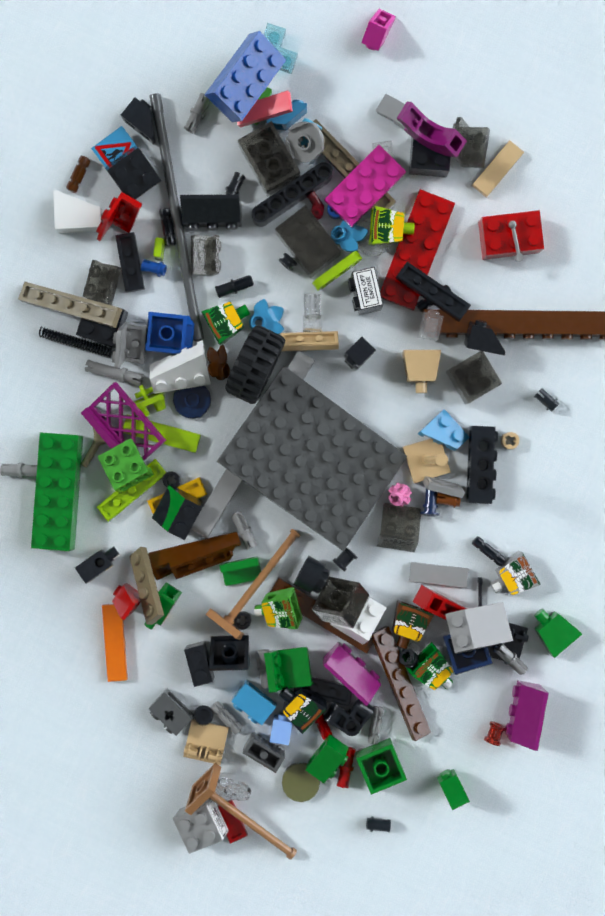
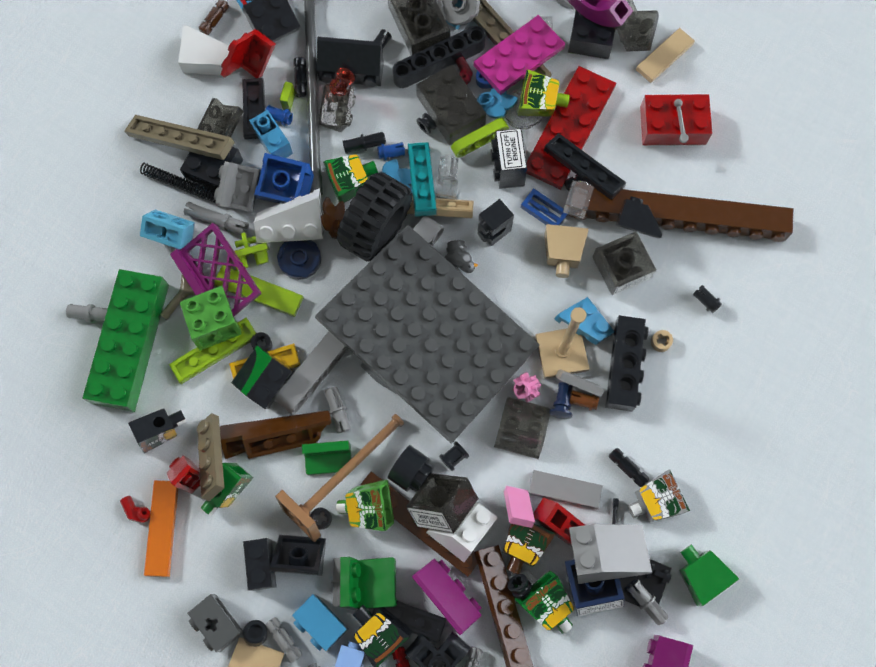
camera: 10 degrees right, 15 degrees down
(73, 389) = (167, 229): none -> medium azure brick
(90, 632) = (133, 512): none -> red arm
(150, 291) = (271, 135): none -> dark azure slope
(207, 233) = (343, 79): none -> clear red bush
(259, 291) = (390, 151): none -> blue pin
(290, 317) = (422, 179): none -> teal tile
(330, 385) = (459, 257): none -> dark grey animal
(396, 338) = (534, 193): none -> blue tile
(402, 596) = (519, 507): none -> bright pink tile

